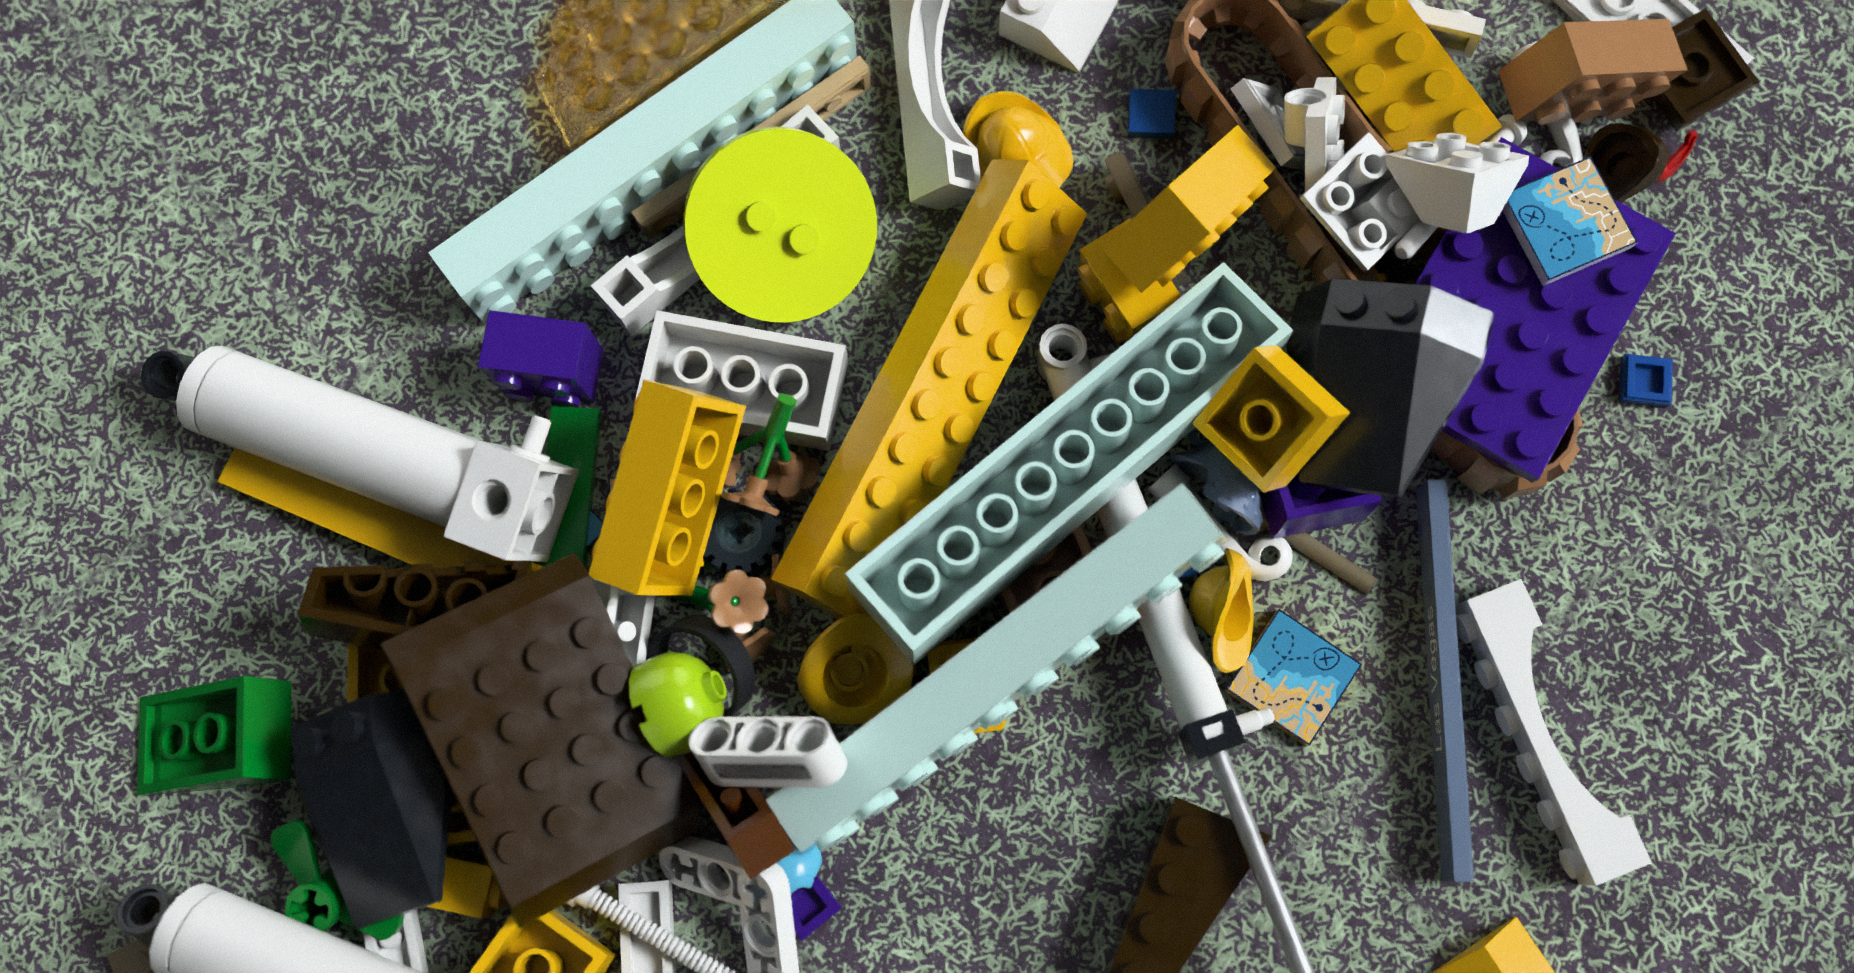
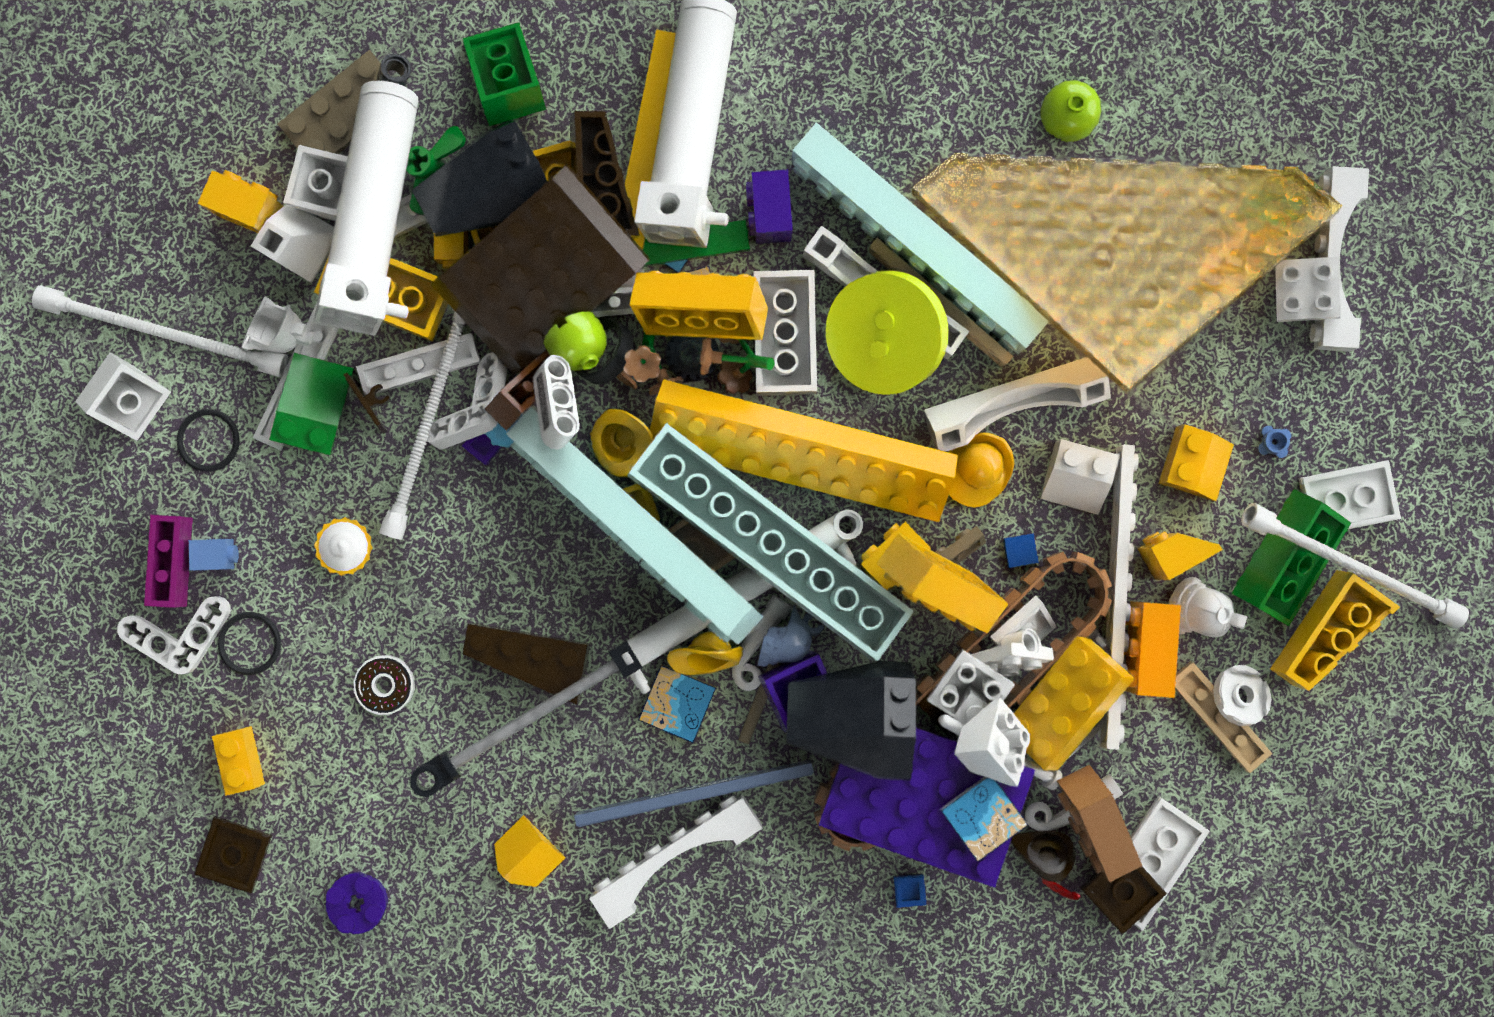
camera: 80 degrees right, 10 degrees up
(1270, 417) = (818, 656): yellow brick -> none

